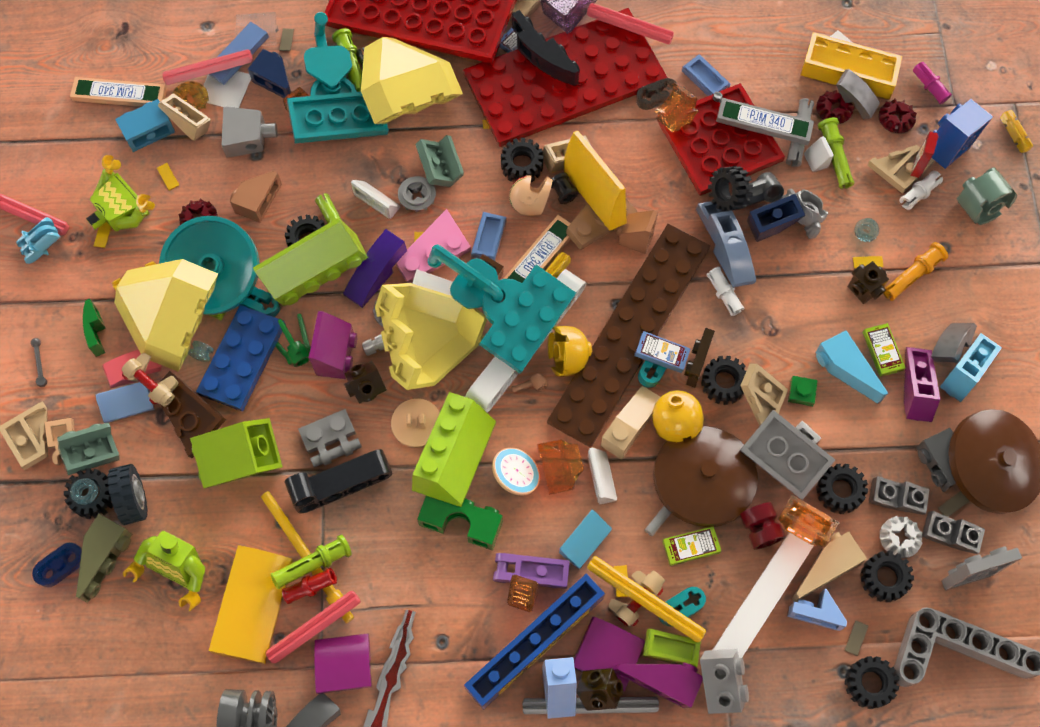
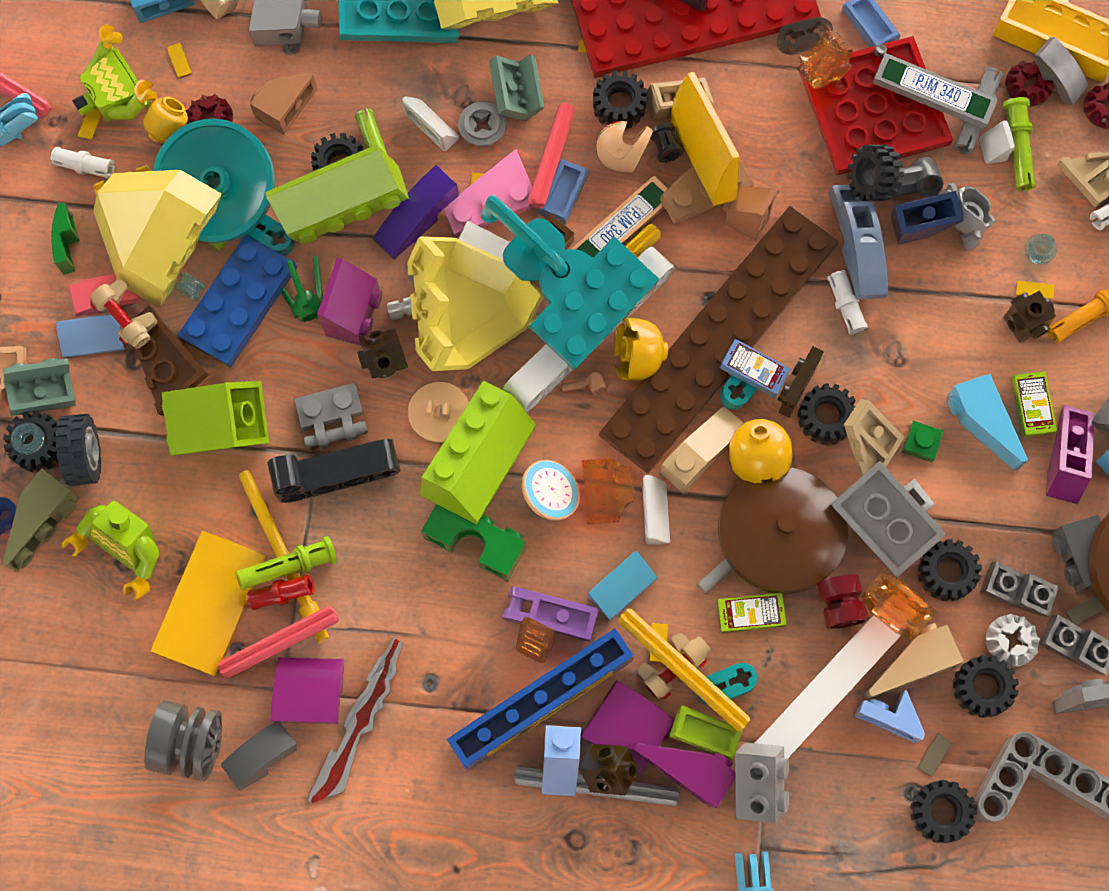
camera: 10 degrees right, 5 degrees up
(100, 266) = (82, 162): none -> white pin
(162, 222) = (164, 118): none -> yellow head
(475, 210) = (551, 155): none -> coral axle

